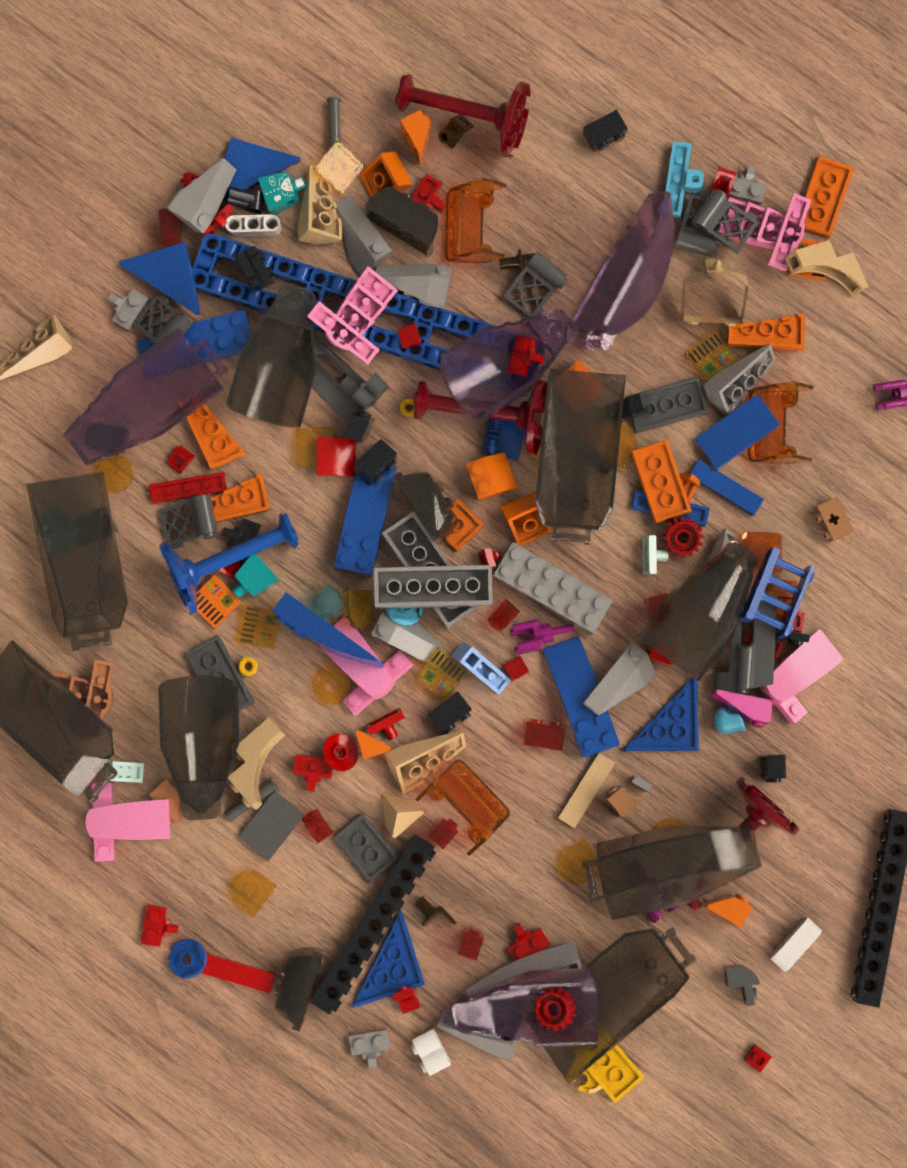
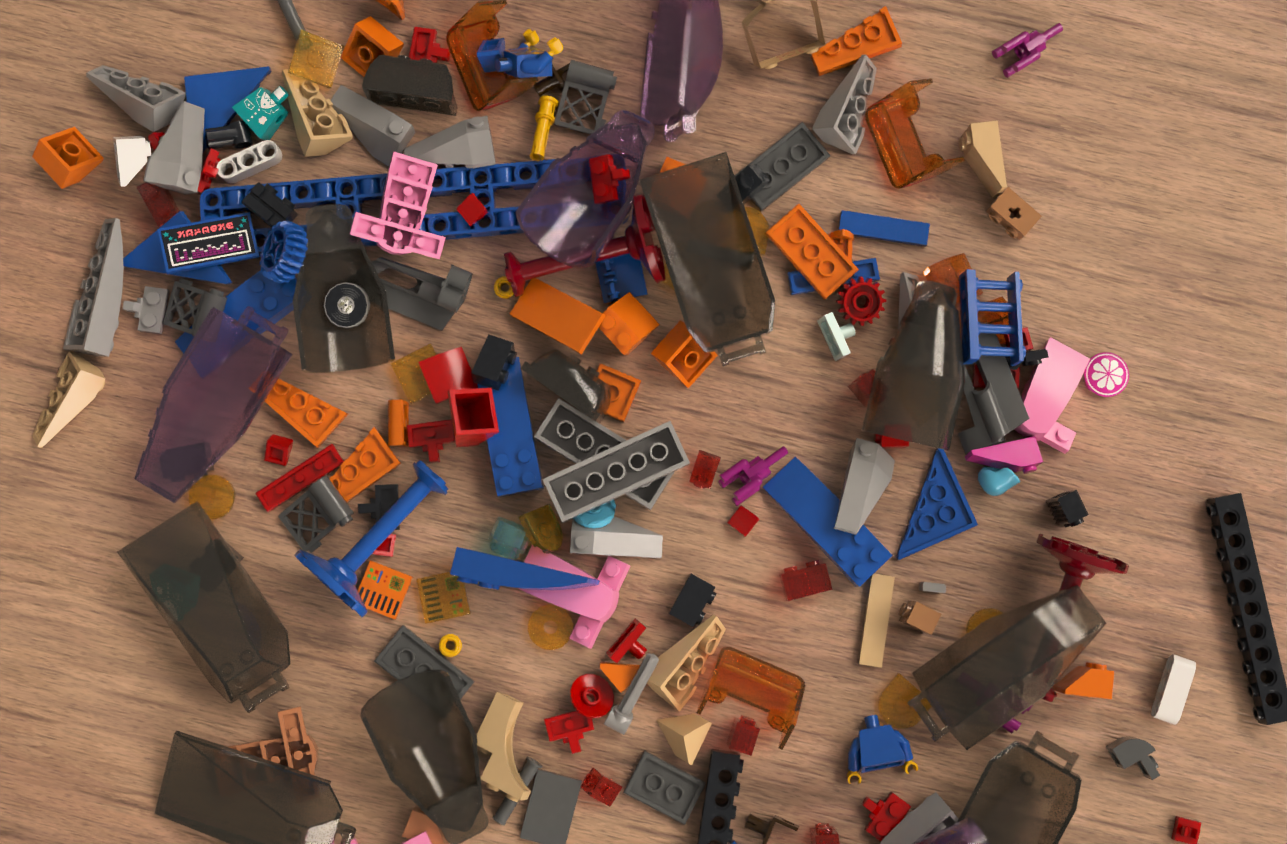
camera: 25 degrees left, 0 degrees up
(86, 293) = (97, 312): none -> light grey wedge
(114, 162) = (67, 156): none -> orange slope
(128, 771) = (366, 819): light aqua tile -> none
(163, 184) = (130, 156): none -> white slope
(191, 143) = (143, 101): none -> light grey wedge
(195, 276) = (208, 243): none -> tile
(250, 308) = (283, 252): none -> blue gear
(254, 577) = (415, 545): teal torso -> none
(281, 369) = (347, 305): none -> black tile
(281, 477) = (397, 423): none -> orange brick
(302, 499) = (431, 437): none -> red hinge
(341, 496) = (472, 415): none -> red slope
(357, 776) = (621, 715): none -> light grey axle
(359, 426) = (459, 330): black brick -> none
(440, 446) = (557, 315): none -> orange tile
(441, 673) = (664, 562): clear yellow tile -> none
(477, 221) = (489, 52): none -> blue slope
(481, 667) = (704, 536): light blue slope -> none
(488, 558) = (661, 414): red tile -> none
(496, 290) = (544, 119): none -> yellow pin
(503, 238) = (528, 60): none -> blue torso
(544, 889) = (878, 749): none -> blue torso
(552, 588) = (745, 417): light grey brick -> none
(710, 356) = (805, 94): clear yellow tile -> none
(737, 432) = (871, 162): blue tile -> none
(829, 462) = (984, 155): none -> tan slope
(851, 677) = (1106, 374): none -> dish

